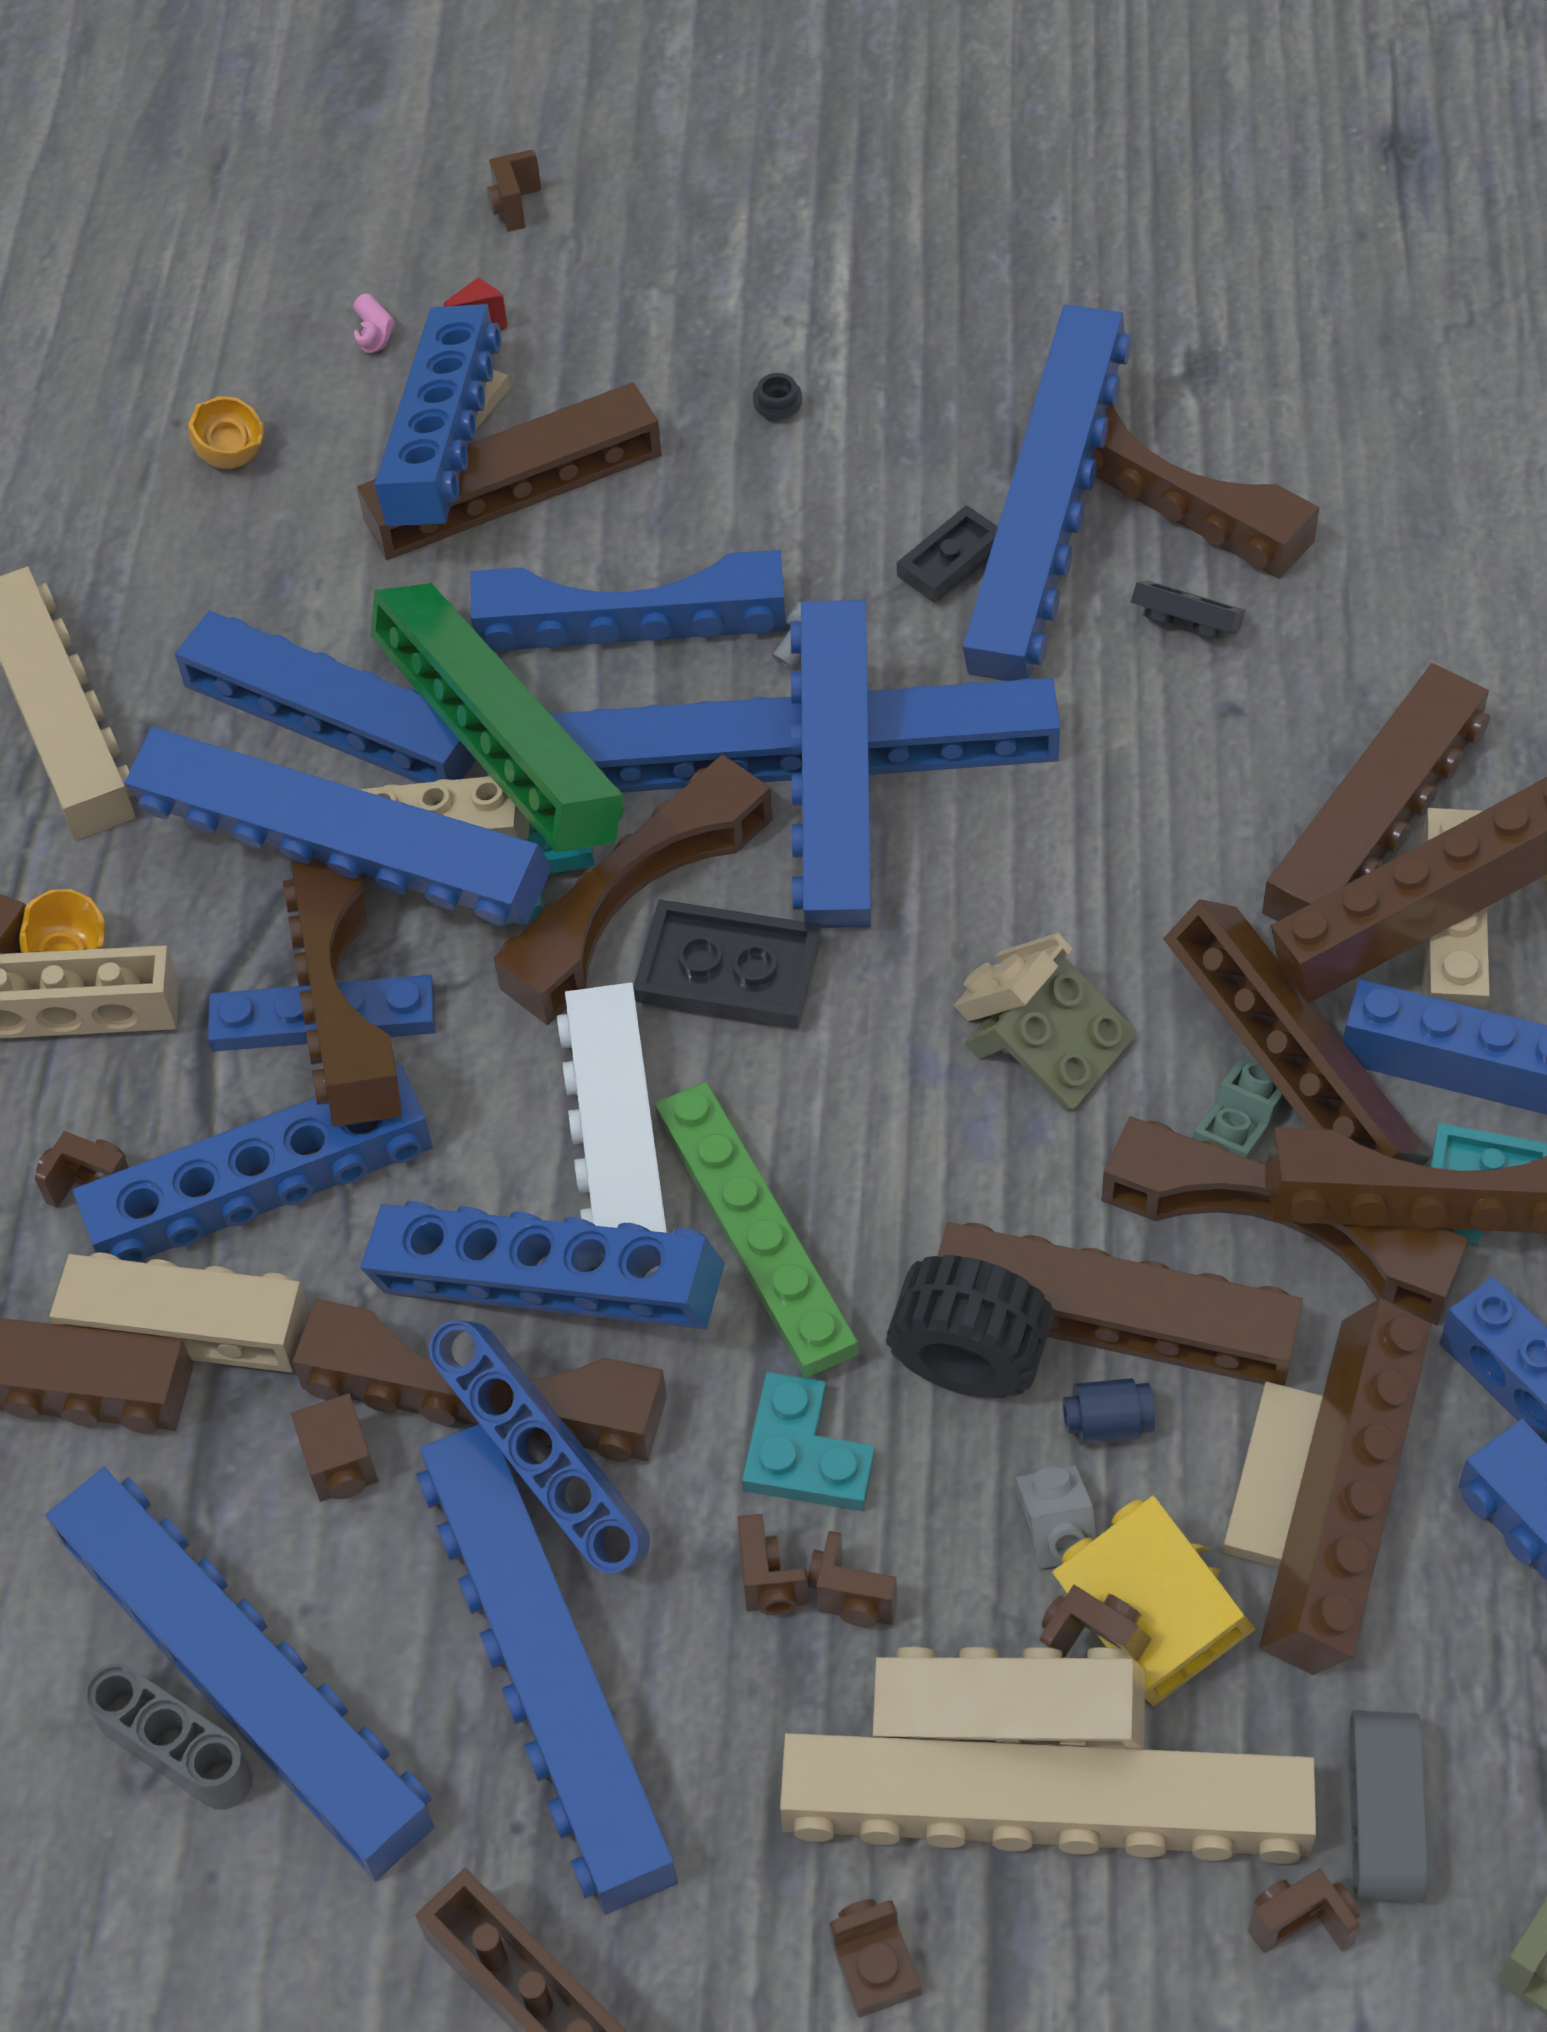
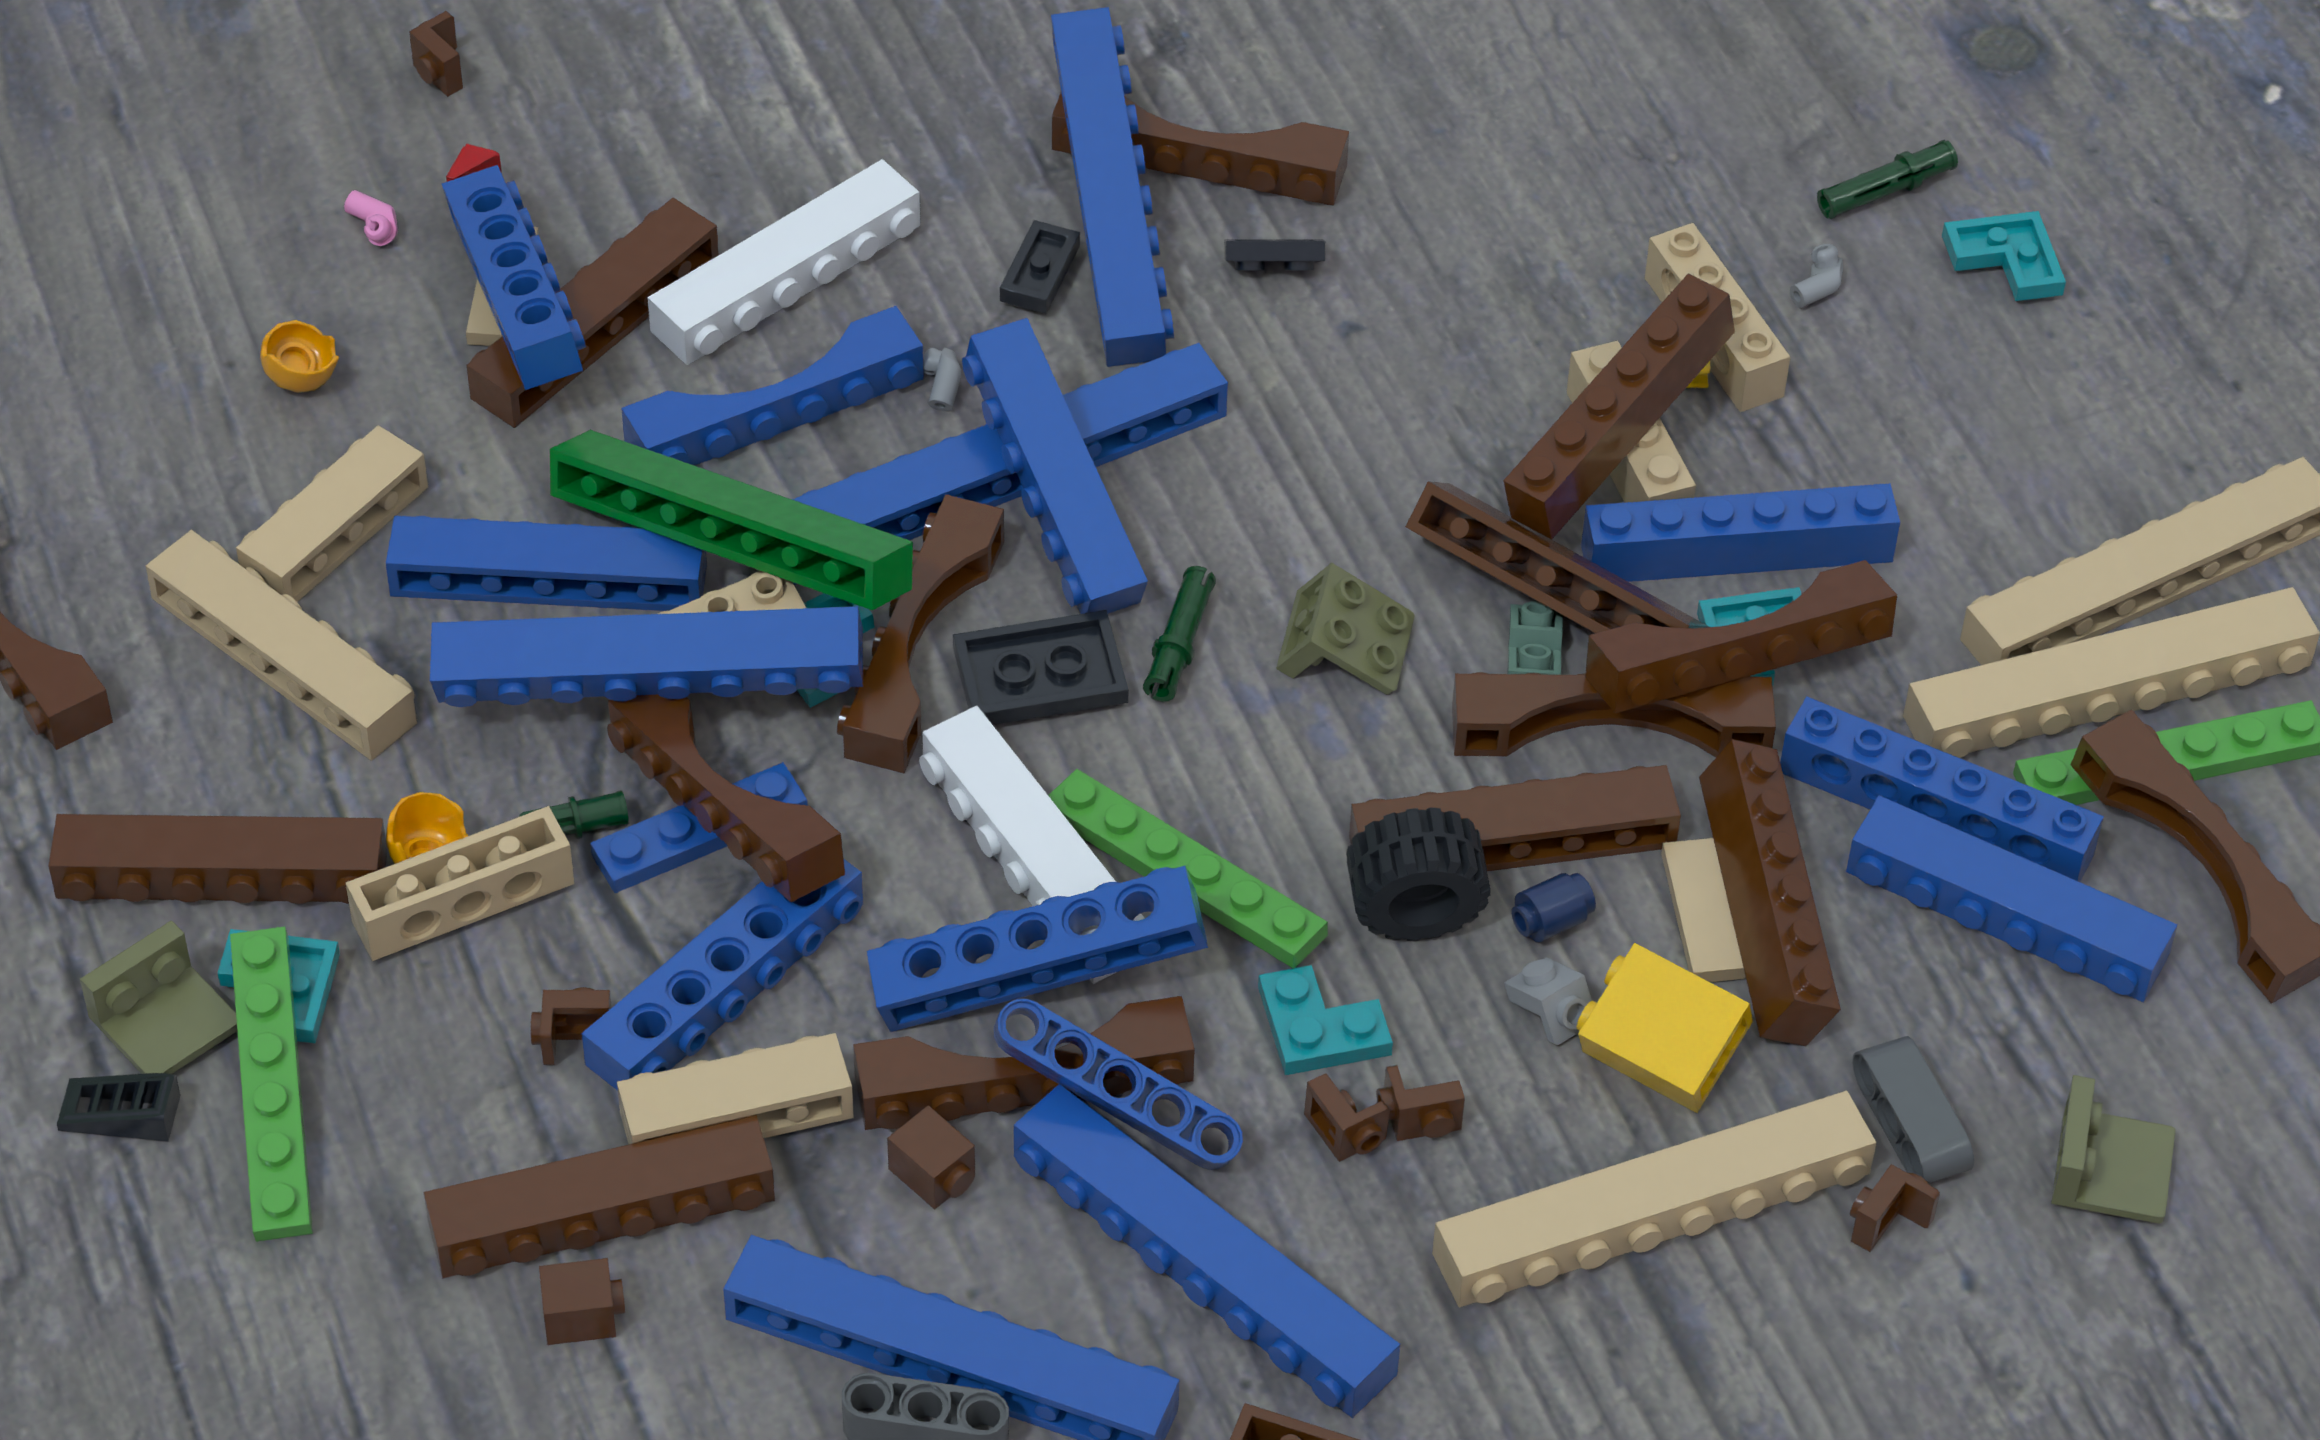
camera: 30 degrees left, 5 degrees down
(167, 594) = (335, 513): none -> tan brick
(218, 962) = (590, 813): none -> dark green axle
(711, 475) = (784, 262): none -> white brick
(777, 396) = (802, 174): black plate -> none
(869, 988) = (1174, 648): none -> dark green pin
(873, 1956) = (1582, 1361): reddish brown bracket -> none
(1012, 1699) = (1601, 1130): tan brick -> none
(1013, 980) = (1297, 597): tan plate -> none
(1109, 1619) = (1645, 1045): reddish brown bracket -> none
(1382, 791) = (1519, 359): reddish brown brick -> none

